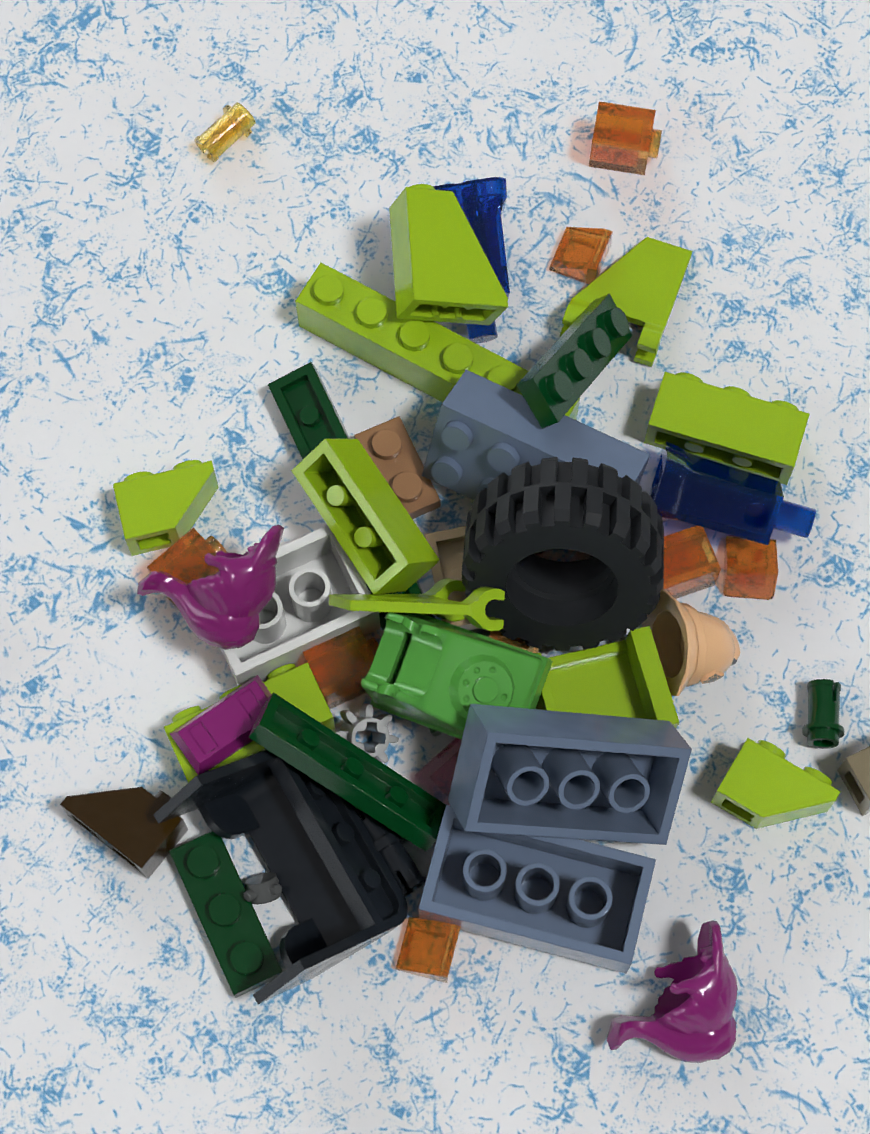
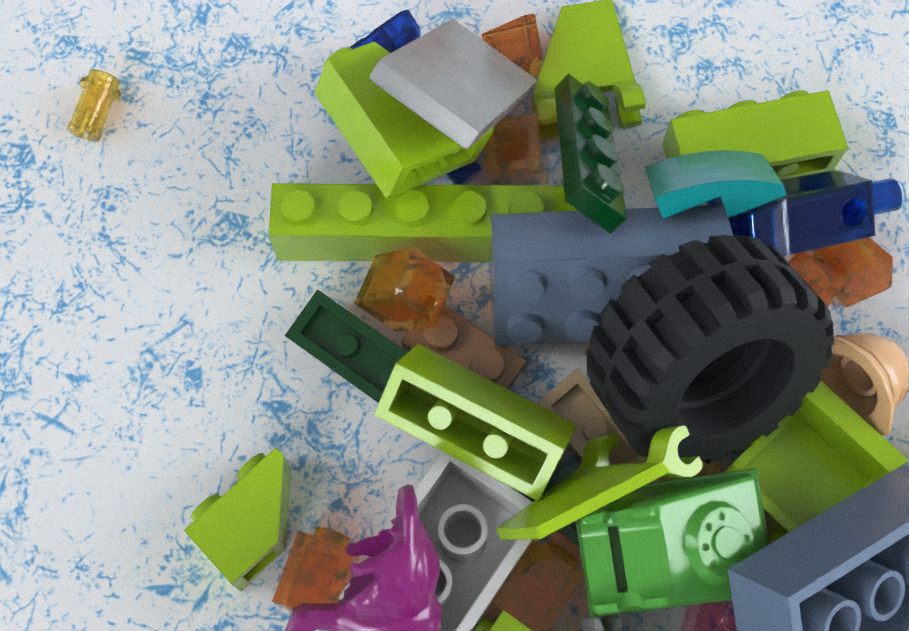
camera: 30 degrees left, 0 degrees up
(376, 396) = (405, 290): none -> clear orange brick
(501, 253) = (454, 81): none -> light grey tile
(525, 332) = (517, 152): none -> clear orange brick
(661, 432) = (736, 177): none -> teal slope

